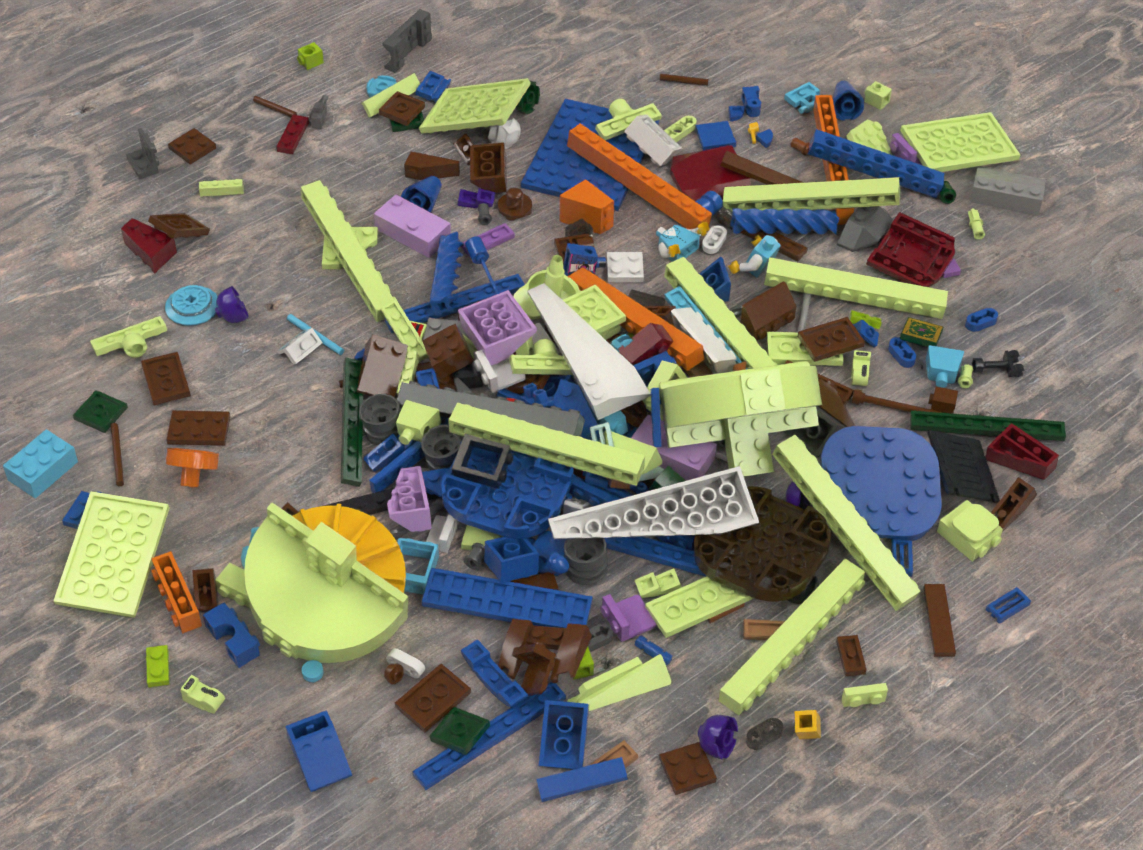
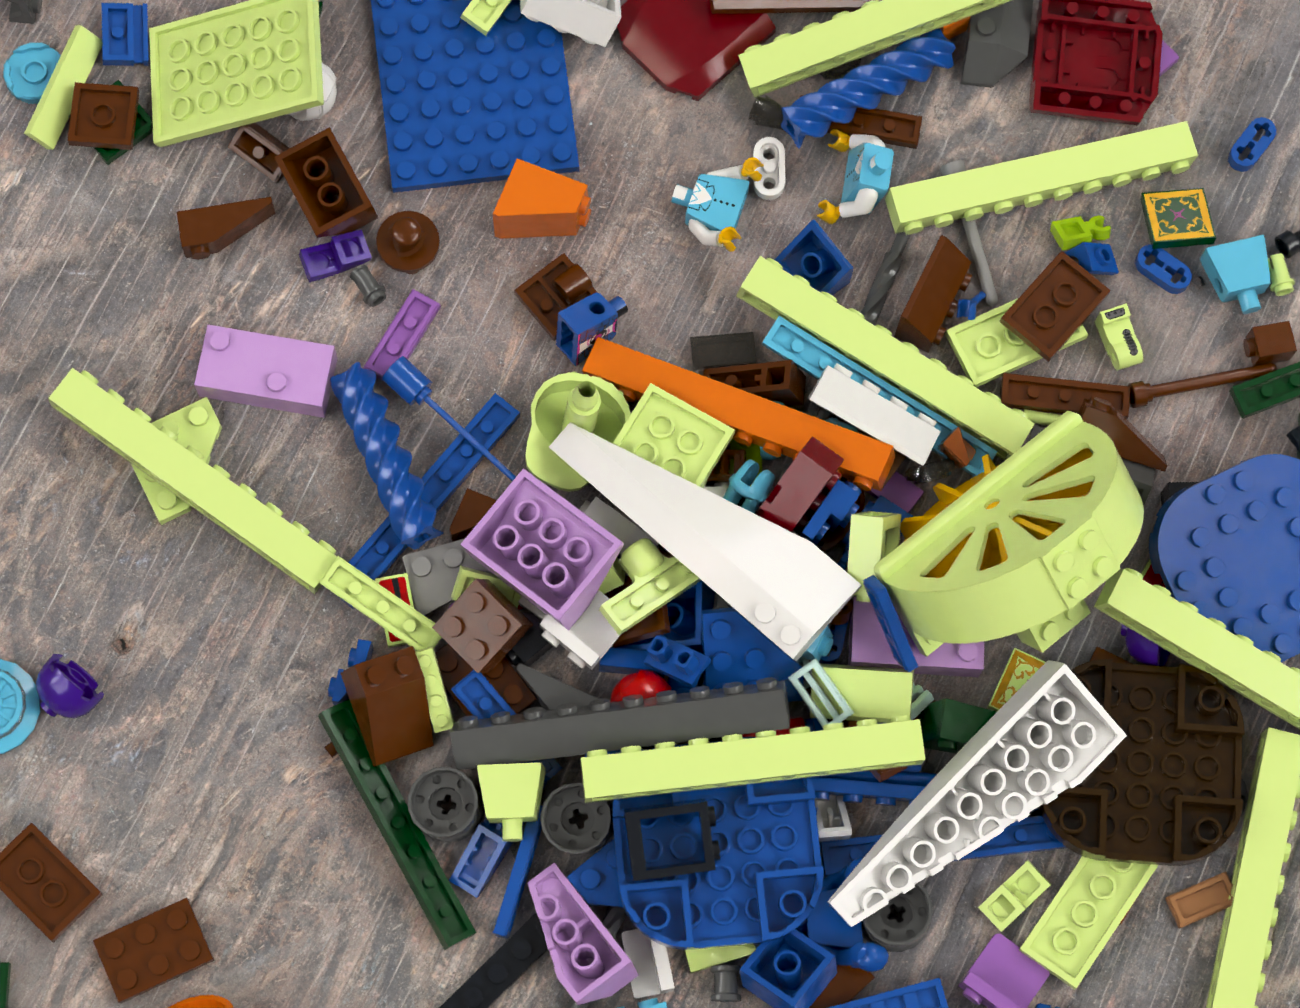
camera: 30 degrees left, 25 degrees up
(301, 345) = (221, 708): white panel -> none
(303, 326) = (231, 670): medium azure bar -> none
(423, 193) = (249, 296): blue cone -> none
(578, 228) = (537, 255): clear smoke bracket -> none
(625, 267) = (654, 291): white plate -> none
(637, 178) = (590, 102): orange brick -> none
(711, 202) = (725, 104): blue wheel -> none
(783, 325) = (967, 307): none -> blue hand

